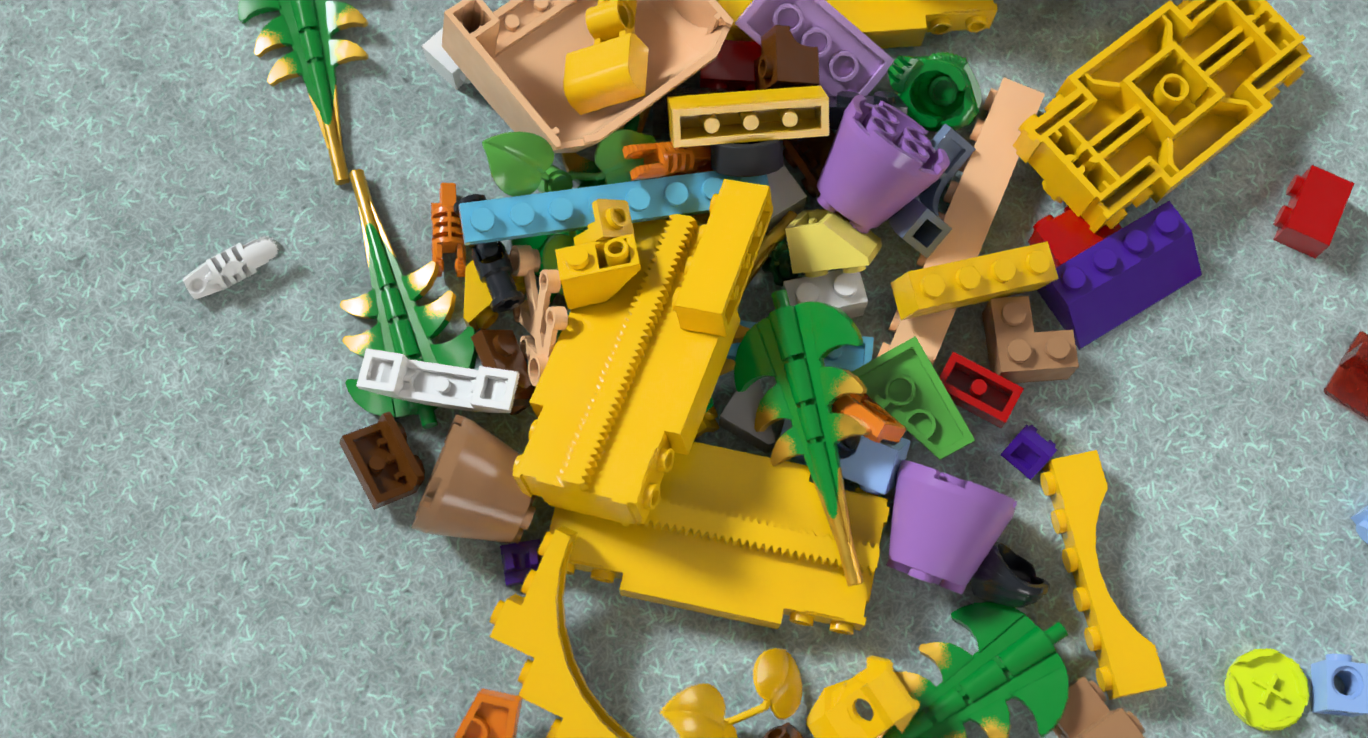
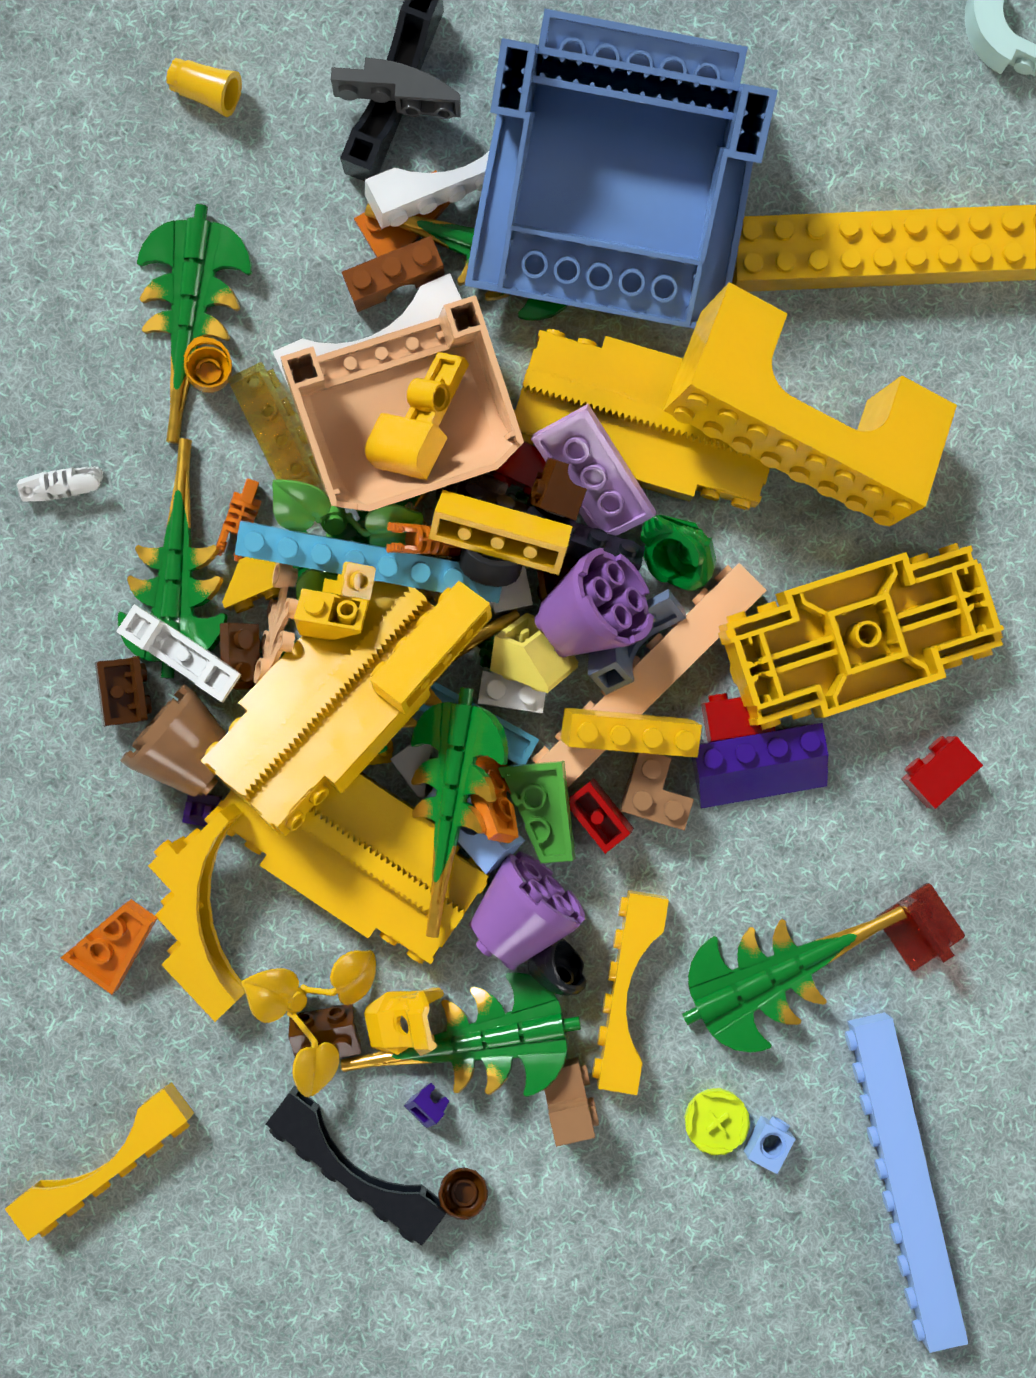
camera: 25 degrees right, 15 degrees up
(355, 102) = (198, 370): none -> light orange helmet
(443, 119) = (272, 424): none -> clear yellow brick
(494, 268) = (257, 583): black piece -> none
(1029, 451) = (620, 876): dark purple tile -> none
(1214, 538) = (731, 996): none -> green animal

